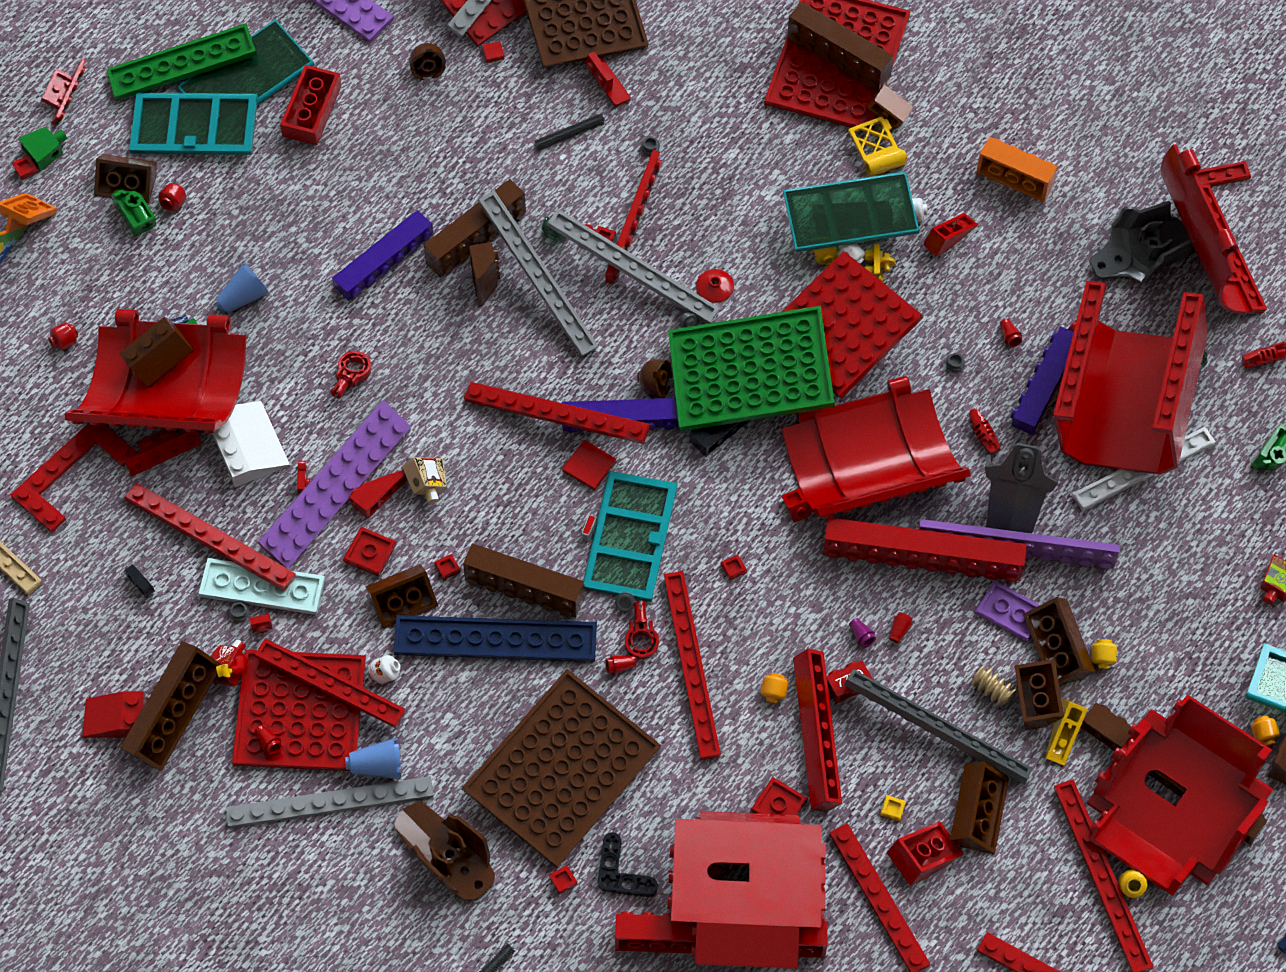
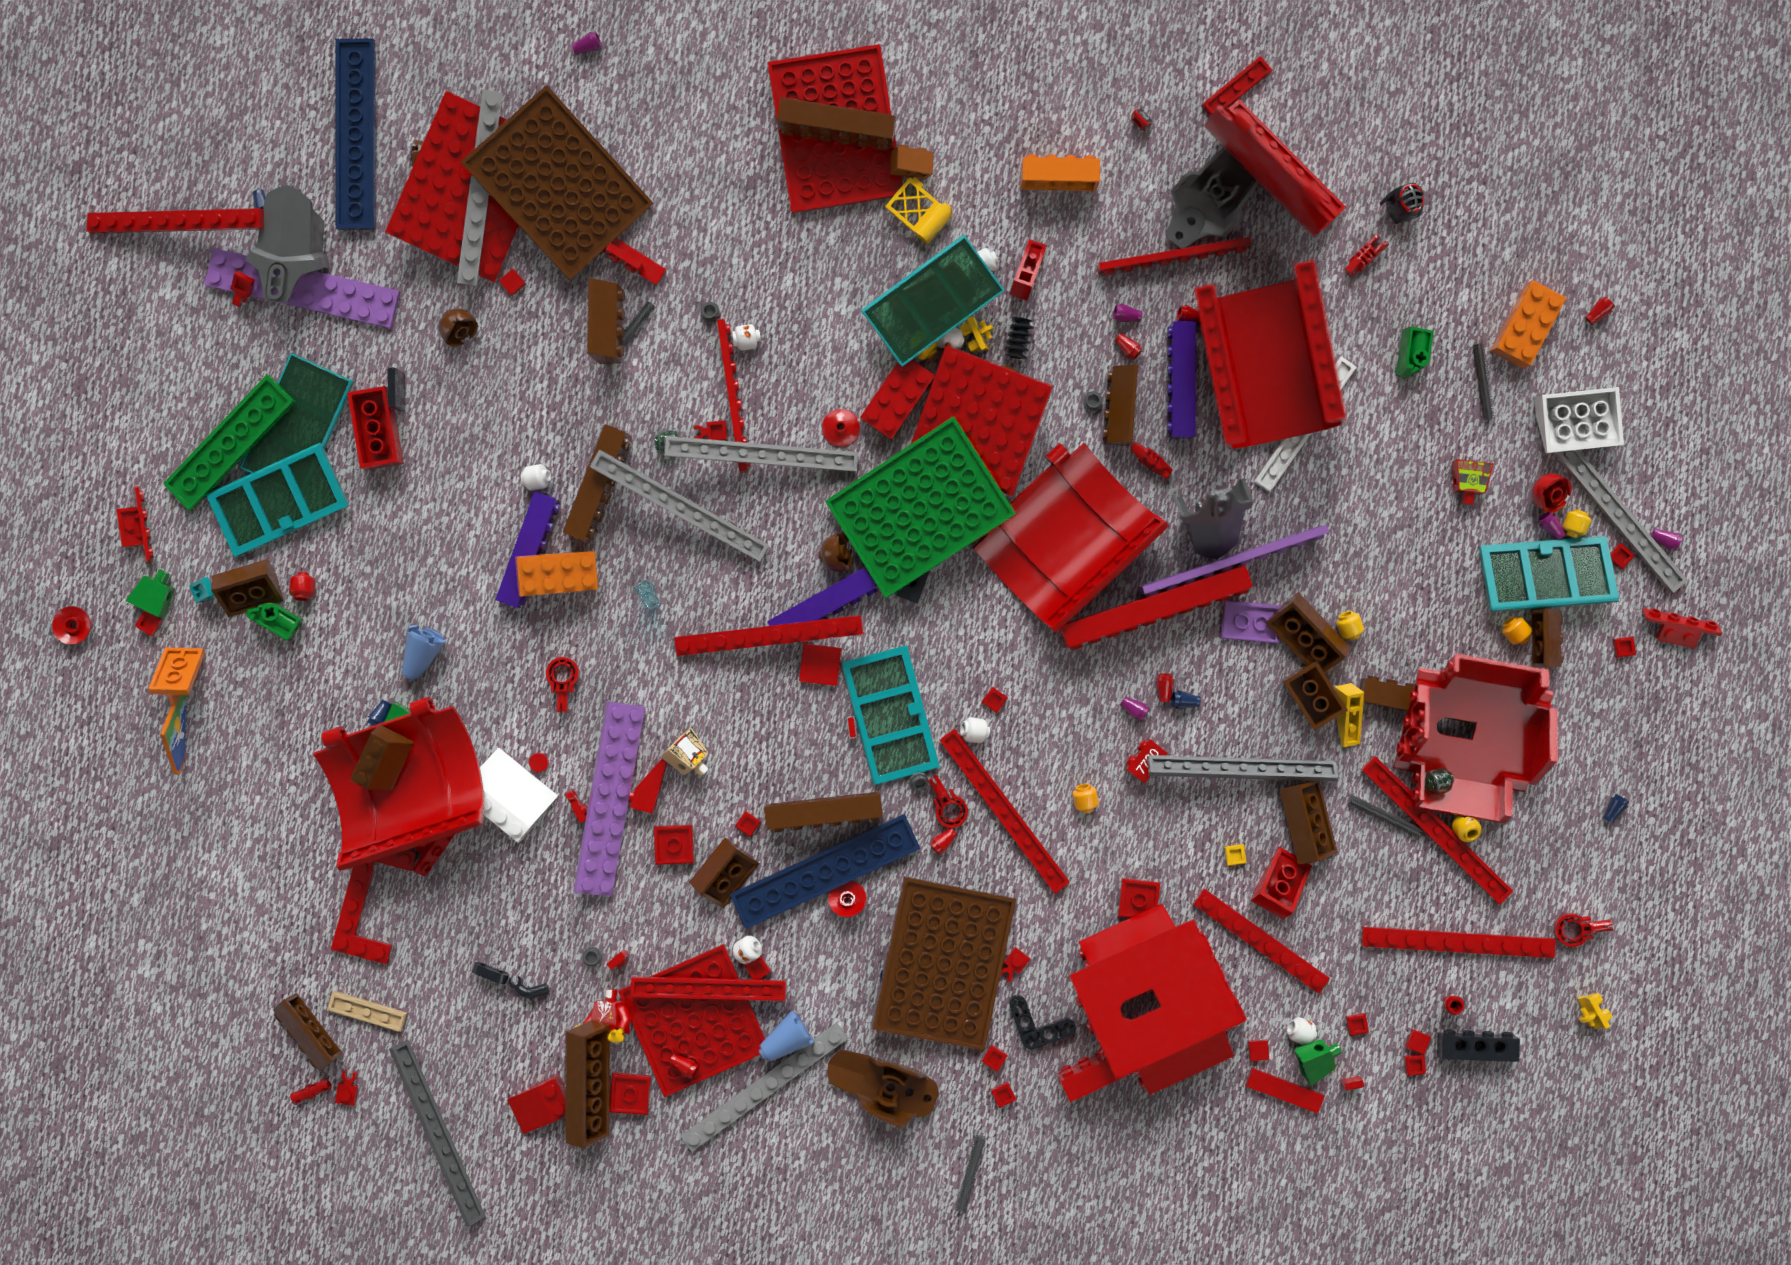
camera: 25 degrees left, 25 degrees up
(63, 336) = (286, 776): red head -> none
(86, 160) = (202, 590): none -> teal bracket
(164, 614) = (529, 992): none -> black piece
(202, 746) = (630, 1093): none -> red plate
(210, 537) = (528, 902): red plate -> none
(235, 584) = (598, 924): light aqua plate -> none
(289, 429) = (538, 762): none -> red tile
(347, 82) = (396, 389): none -> black tile
(386, 690) = (758, 968): none -> red plate
(398, 279) = (556, 573): none -> orange brick
(425, 202) = (535, 477): none -> white head
(468, 332) = (647, 593): none -> clear light blue animal
(484, 270) = (630, 528): reddish brown slope -> none
(502, 670) = (851, 891): none -> red dish
(553, 917) = (1003, 1094): none -> red plate
(555, 108) = (605, 321): none -> reddish brown slope
(630, 804) = (1015, 962): none -> red plate
(670, 176) = (746, 337): none -> white head
(688, 320) = (836, 479): dark grey plate -> none
(701, 581) = (974, 730): none -> white head
(776, 280) = (897, 398): none -> red brick
(796, 505) = (1020, 613): red bracket -> none
(817, 730) = (1142, 821): red brick -> none
(913, 647) = (1184, 700): none -> dark blue cone
(914, 281) = (1018, 338): none -> black piece
(979, 373) = (1121, 405): none -> reddish brown slope
(993, 686) = (1272, 703): tan piece -> none
(1022, 306) = (1124, 313): none -> magenta cone
(1058, 843) = (1378, 812): none -> dark grey axle
(1079, 277) = (1165, 258): none -> red plate
(1112, 163) = (1141, 119): none -> red slope
(1124, 825) = (1438, 781): none -> head

